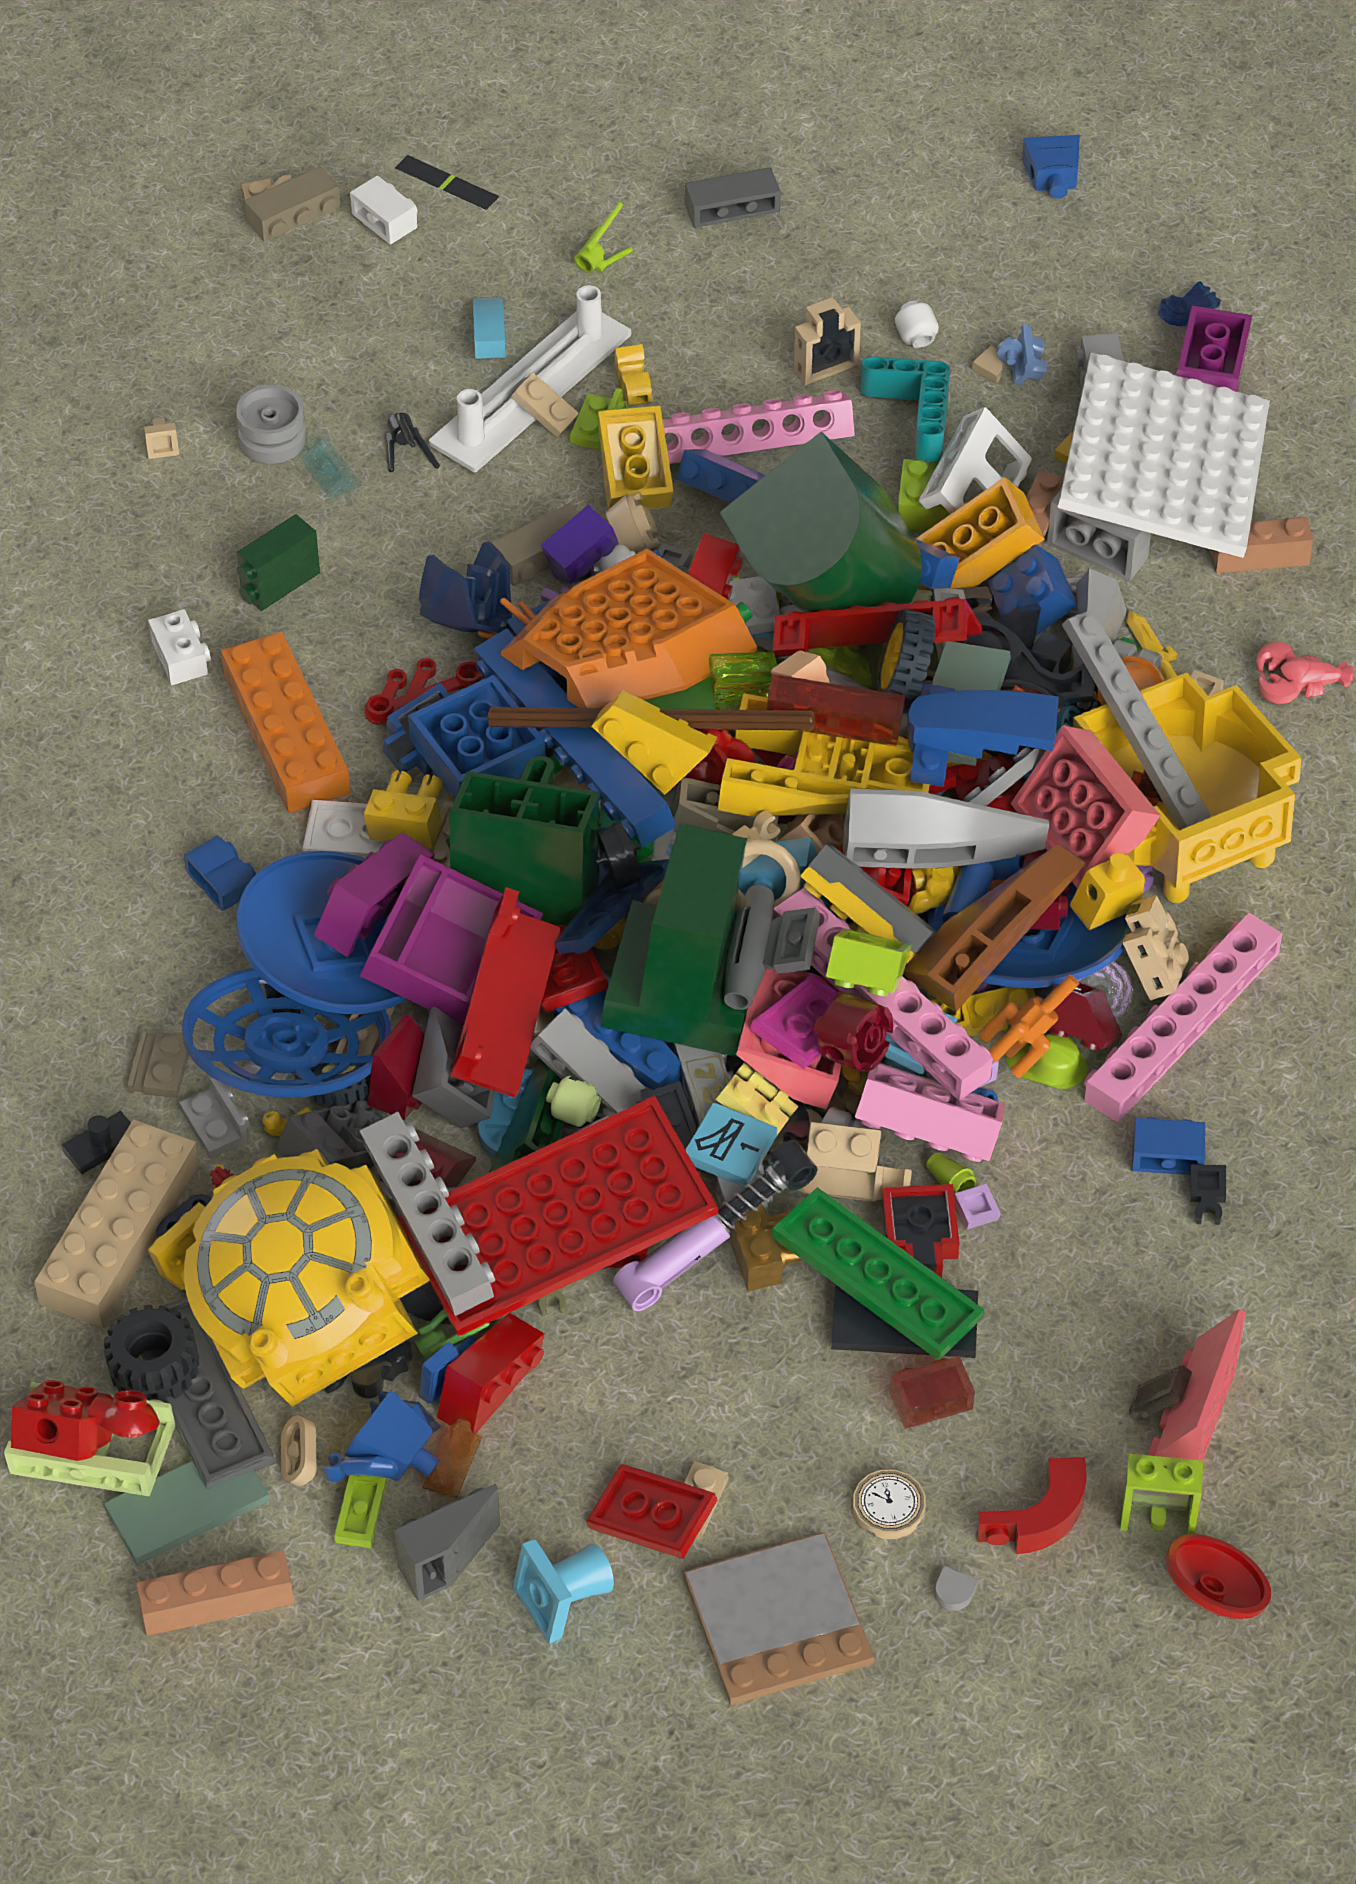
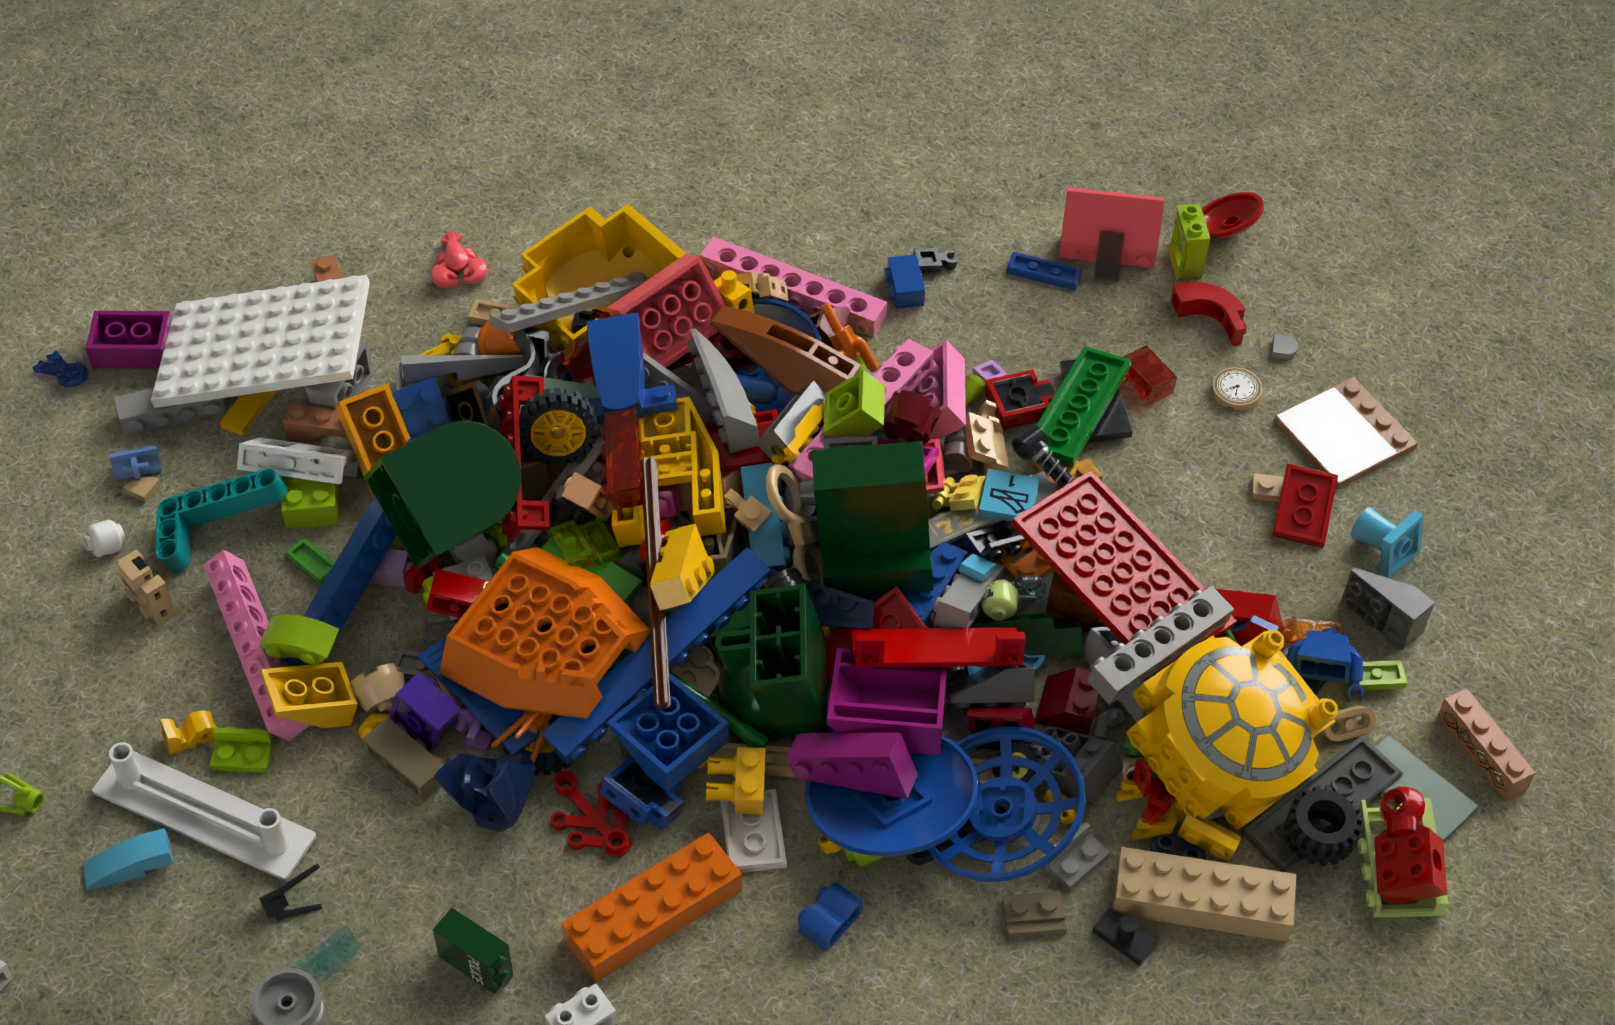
camera: 105 degrees left, 0 degrees up
(545, 404) = (234, 789): tan plate -> none
(625, 1083) = (977, 567): none -> medium azure tile
(697, 444) = (298, 638): none -> lime brick
(1166, 1327) = (1044, 271): none -> blue tile

